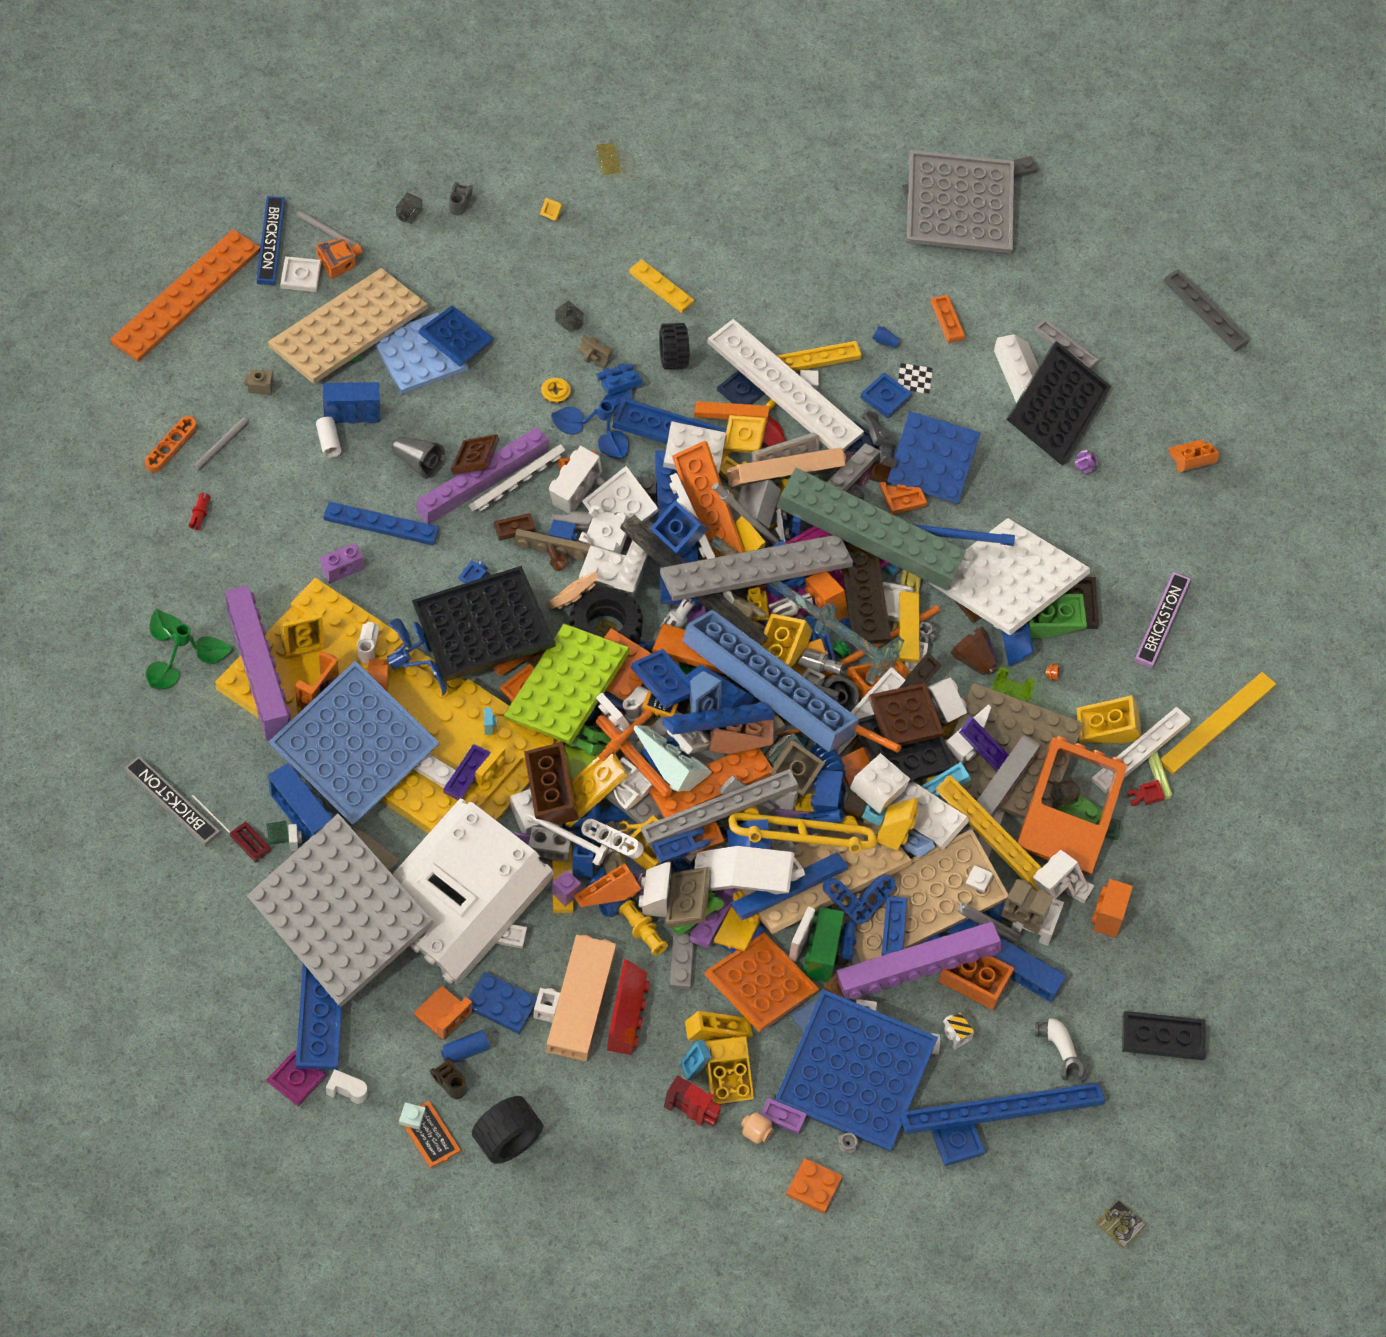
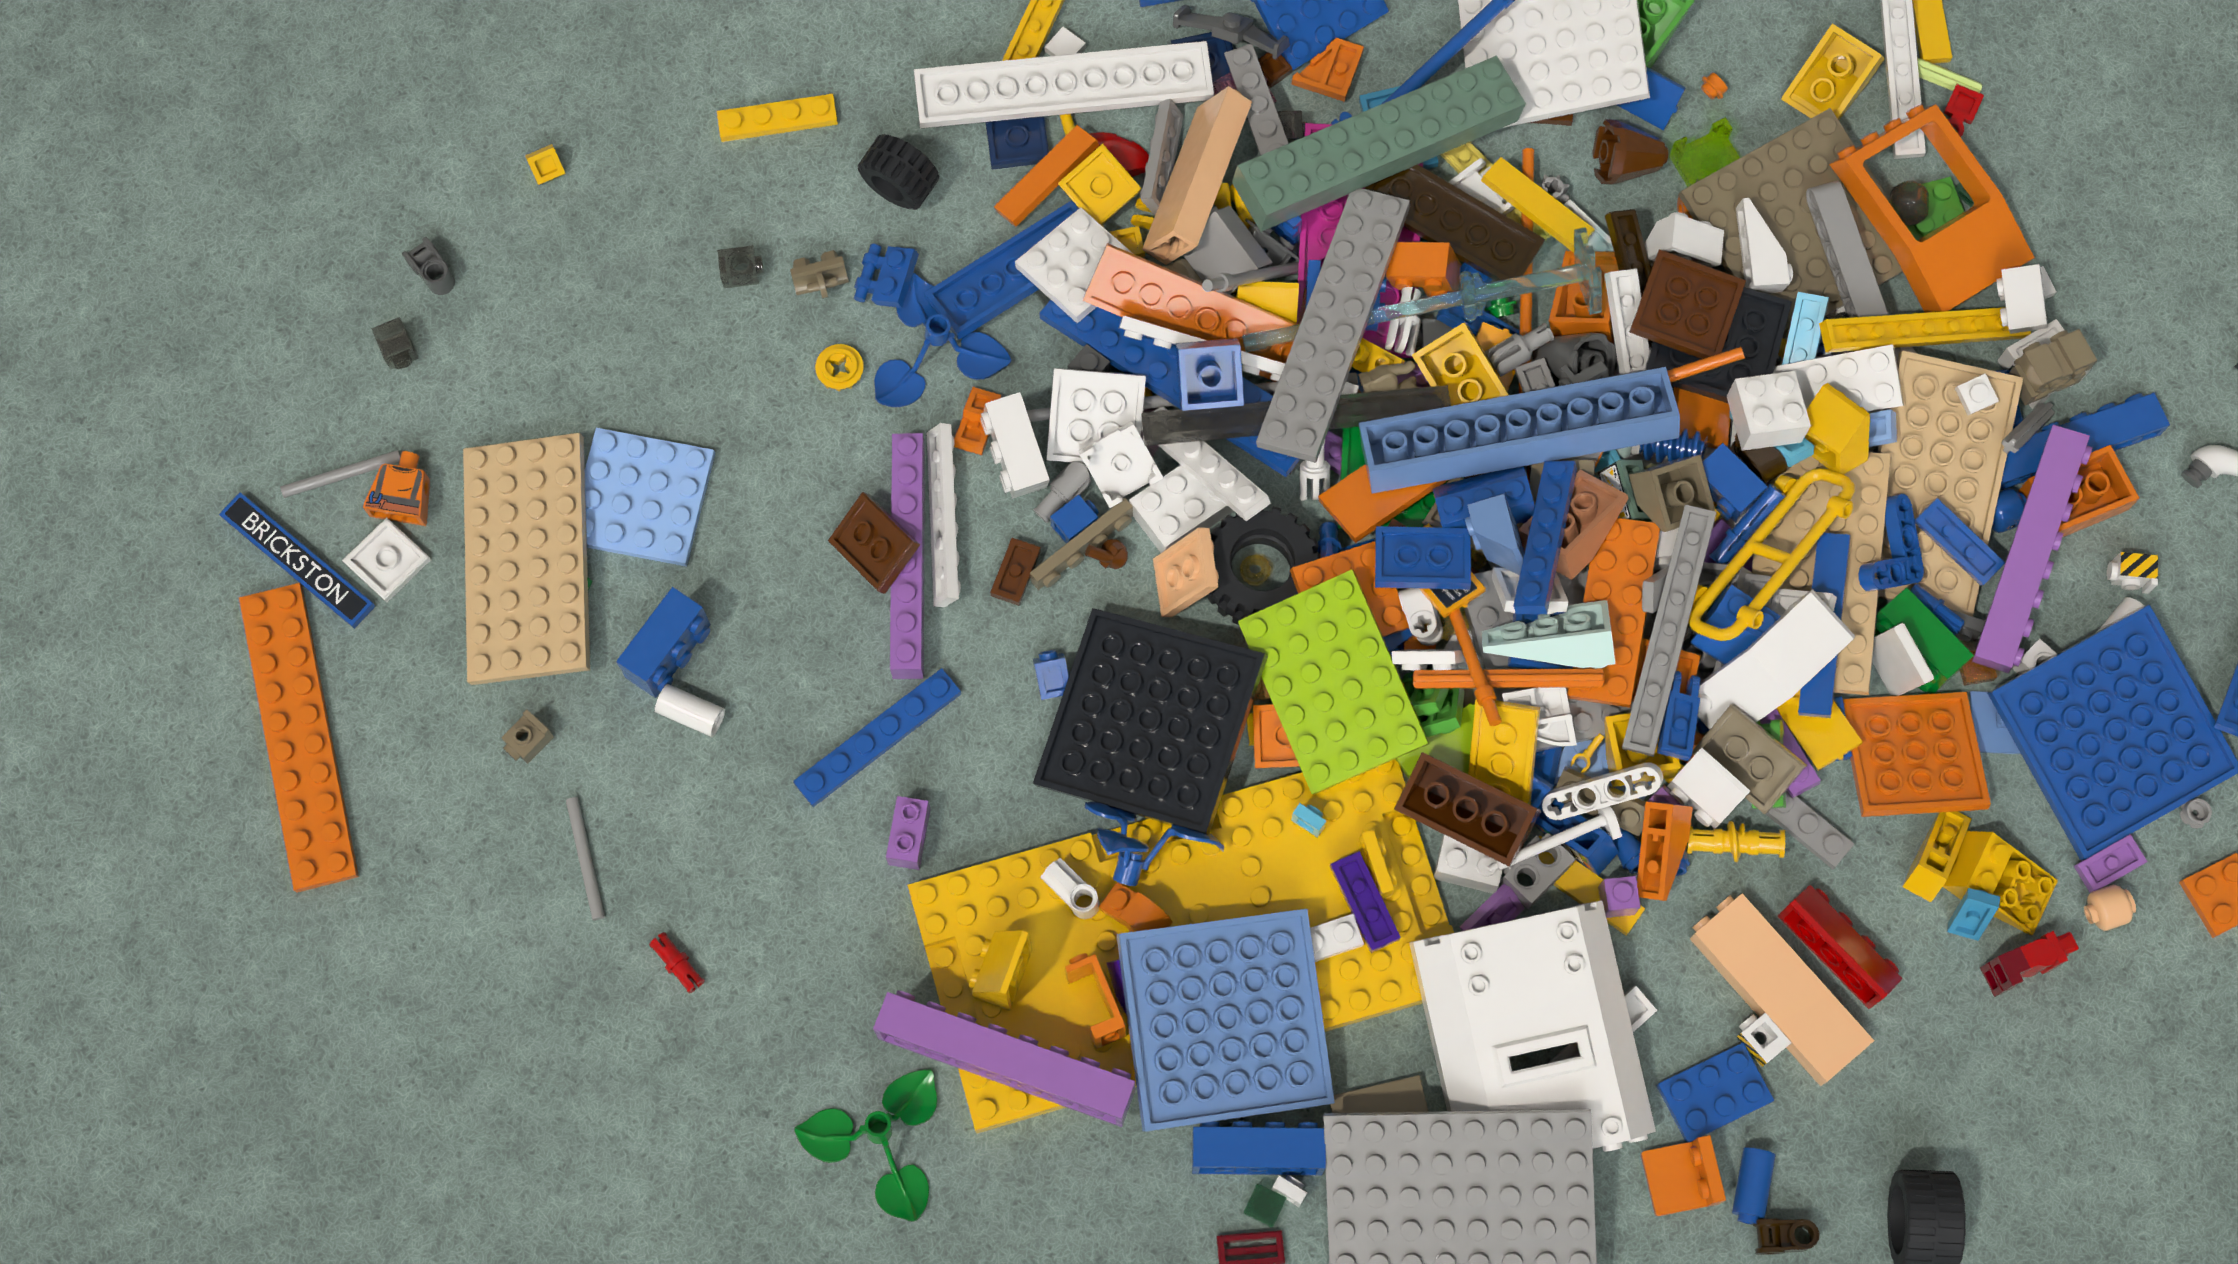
camera: 45 degrees left, 15 degrees up
(167, 442) = (532, 927): orange beam -> none
(420, 455) = (811, 615): dark grey cone -> none
(456, 335) = (660, 432): blue plate -> none
(607, 158) = (516, 35): clear yellow tile -> none
(983, 743) = (1792, 245): dark purple tile -> none
(1111, 907) = (2099, 270): orange brick -> none

